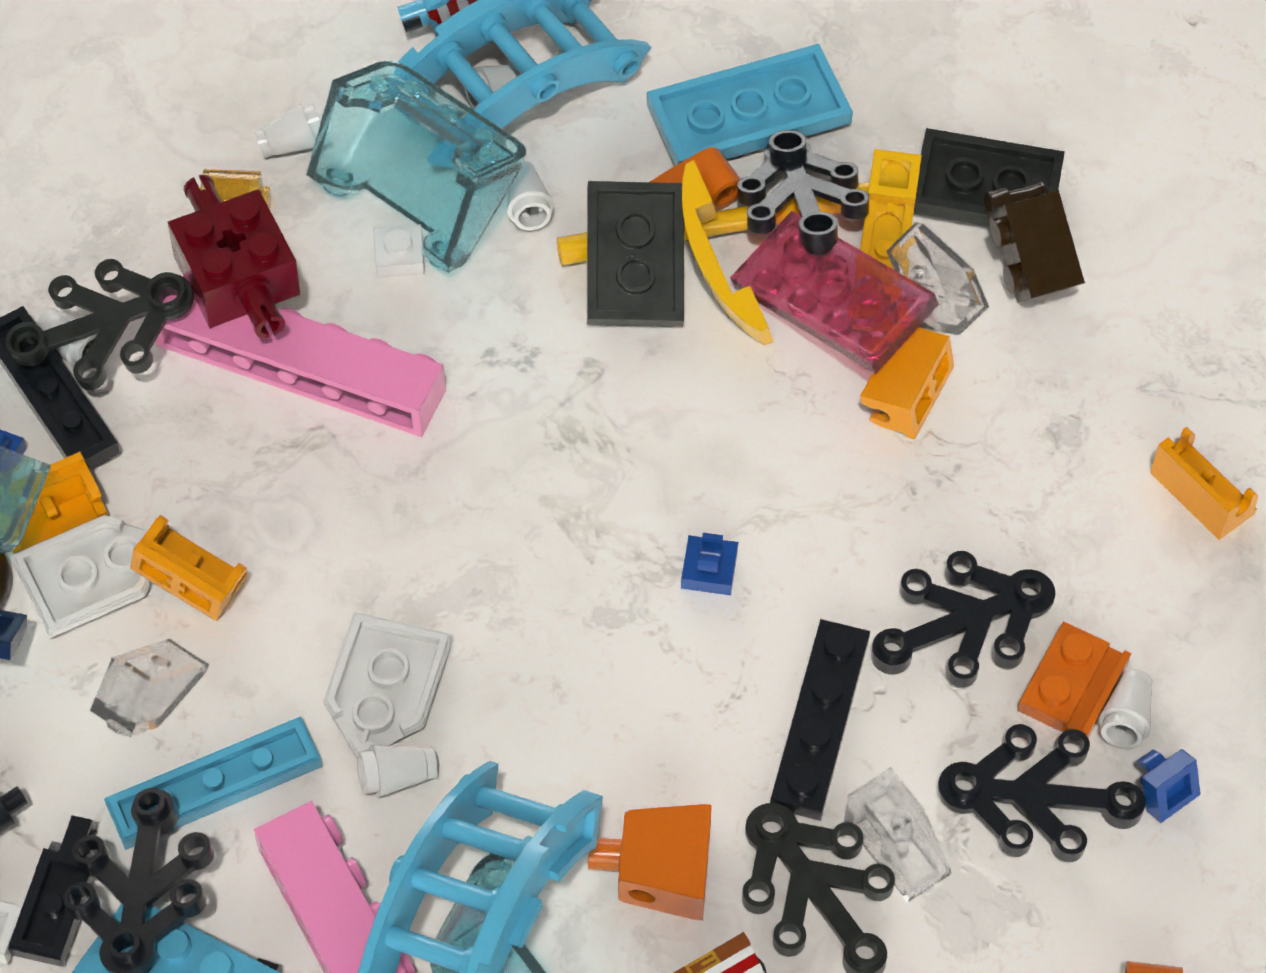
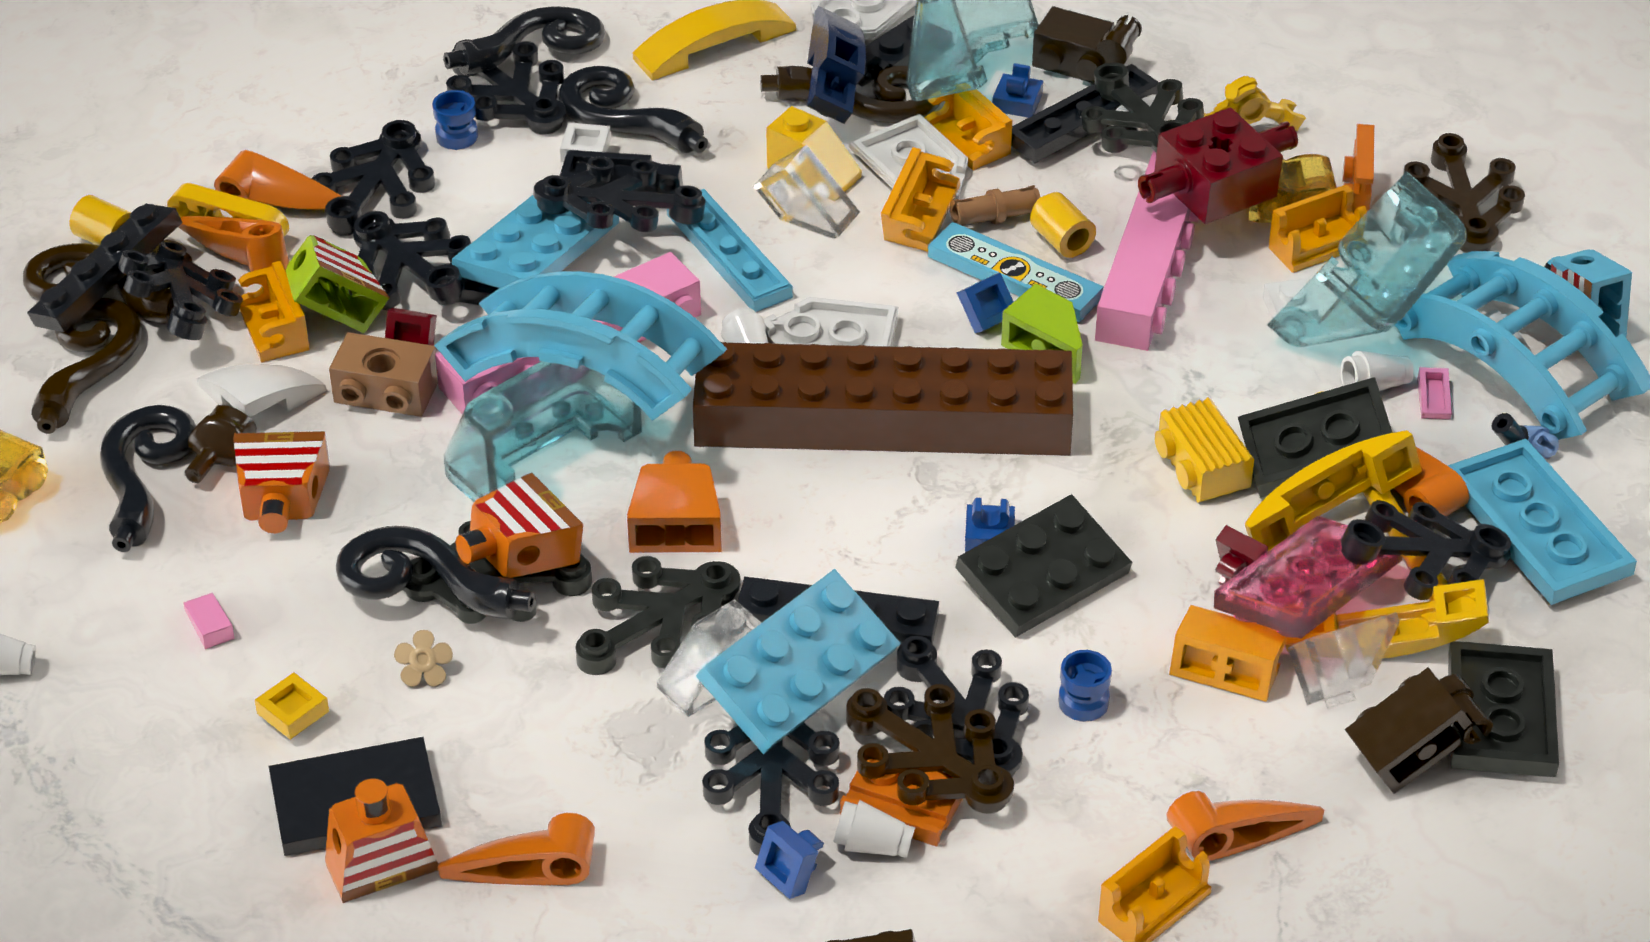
camera: 85 degrees right, 15 degrees down
(65, 676) = (798, 128): none -> yellow slope
(95, 226) = (1254, 104): none -> yellow piece
(188, 74) = (1450, 156): none -> dark brown plant
(199, 497) = (994, 206): none -> medium nougat pin
(231, 146) = (1360, 167): none -> orange plate
(246, 435) = (1062, 224): none -> yellow brick
(301, 207) = (1313, 228): none -> light orange hinge
(306, 494) = (984, 257): none -> tile
(369, 521) = (985, 302): none -> blue plate
(427, 470) = (1043, 322): none -> lime slope
(520, 624) = (886, 399): none -> reddish brown brick
(554, 157) = (1434, 393): none -> bright pink piece
(629, 356) = (1204, 450): none -> yellow brick
(635, 92) = (1510, 431): none -> arm
(776, 520) = (1043, 565): none -> pearl dark grey plate
(787, 351) = (1236, 552): none -> dark red tile
(927, 744) = (798, 660): none -> medium azure plate
(957, 495) = (1084, 685): none -> blue wheel
(1038, 638) = (981, 784): none -> dark brown plant
(1120, 411) = (1237, 825): none -> orange piece

